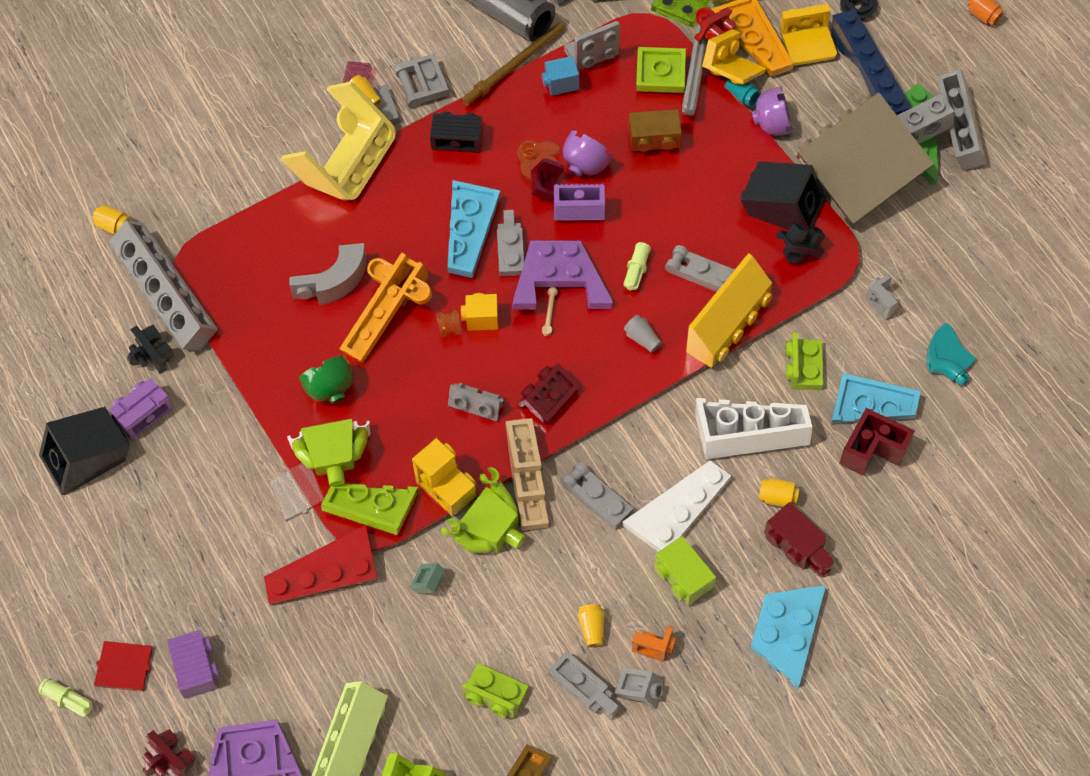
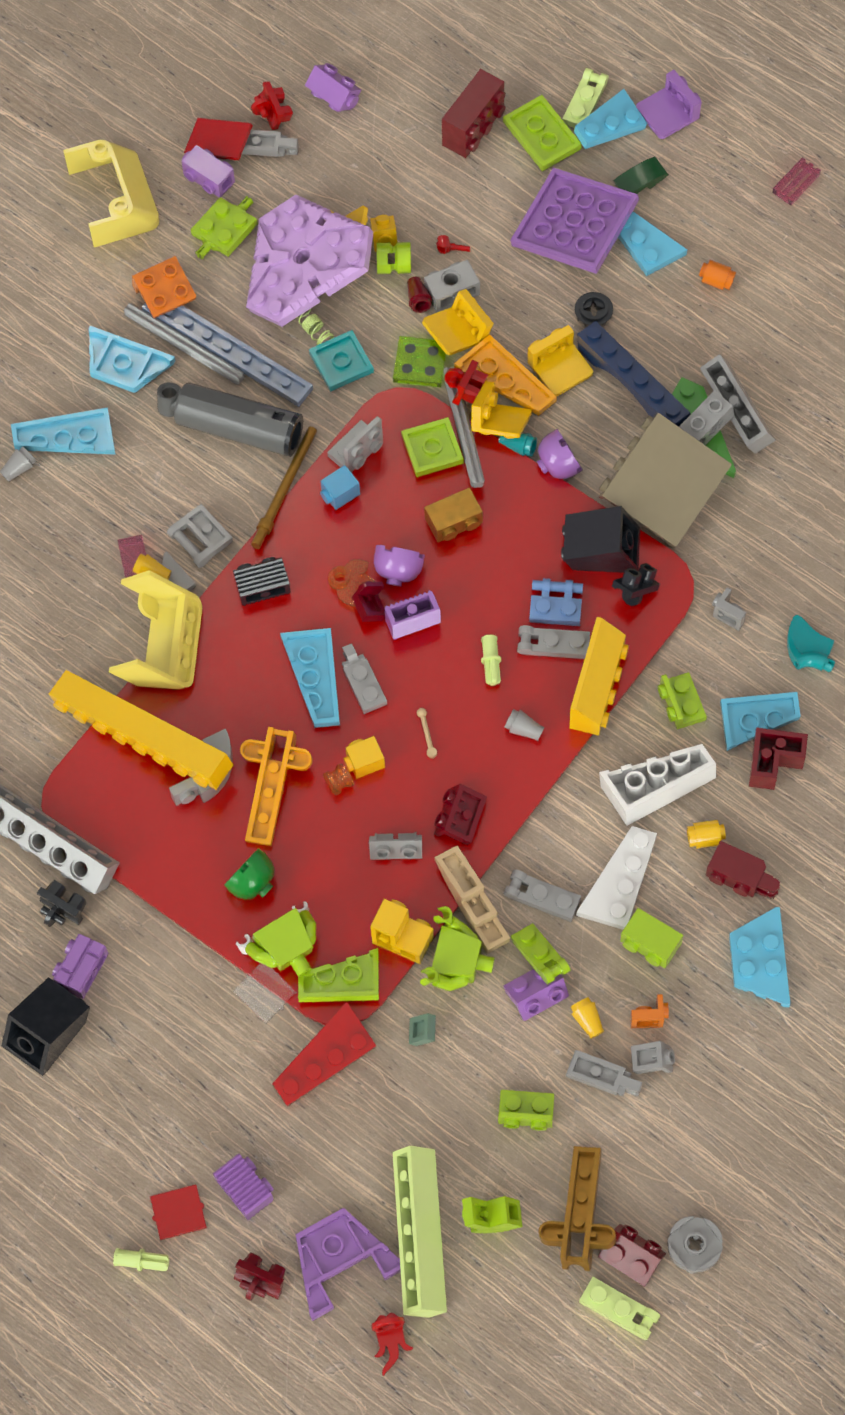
camera: 20 degrees left, 5 degrees up
(289, 221) = (141, 730): none -> yellow brick
(553, 581) = (533, 995): none -> medium lavender bracket
(559, 266) = (419, 684): medium lavender wing -> none
(569, 546) = (540, 953): none -> lime plate
(717, 243) = (556, 609): none -> medium blue plate

